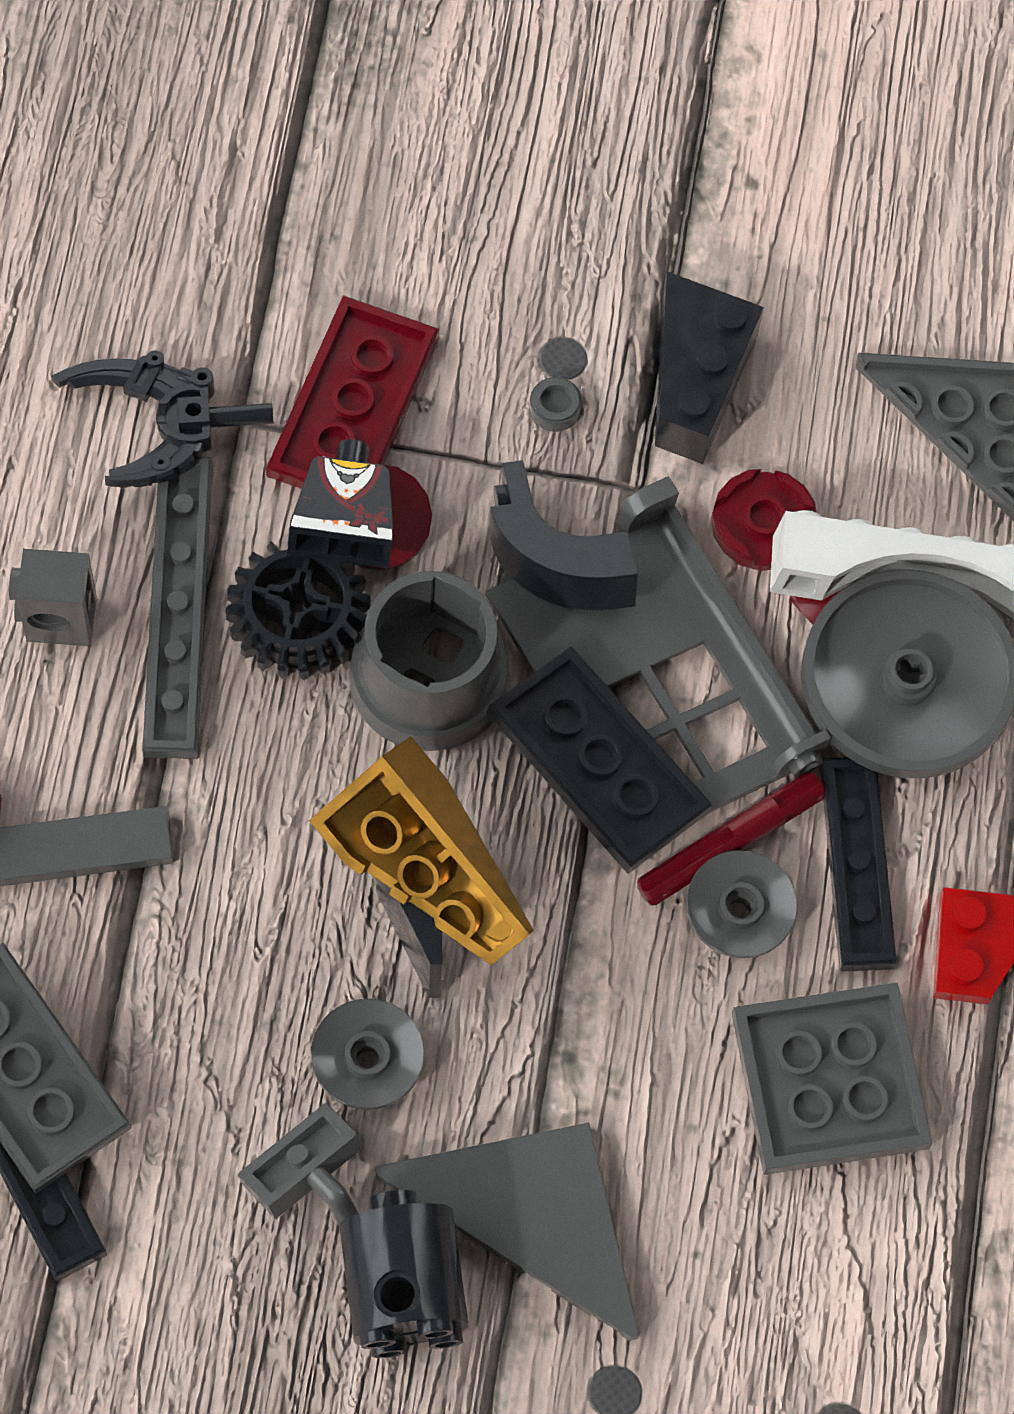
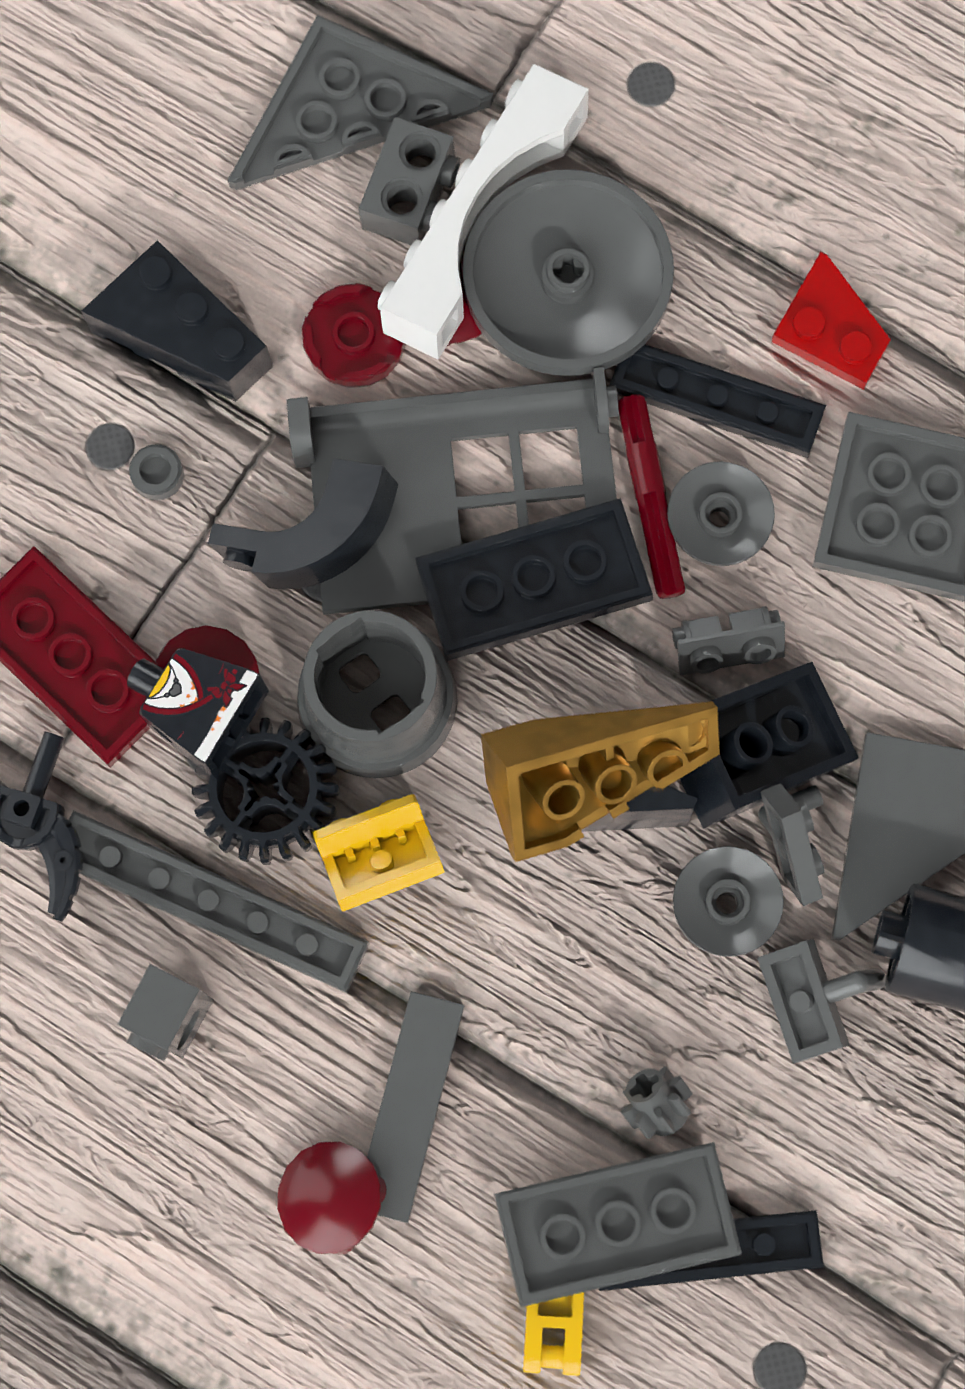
camera: 55 degrees left, 10 degrees up
(148, 1060) = (656, 1102): none -> dark grey gear
(283, 725) = (378, 852): none -> yellow bracket
(460, 1070) = (788, 823): none -> dark grey plate
(535, 1028) = (767, 737): none -> black slope
(606, 942) = (753, 639): none -> dark grey hinge
(927, 491) = (399, 181): none -> dark grey brick

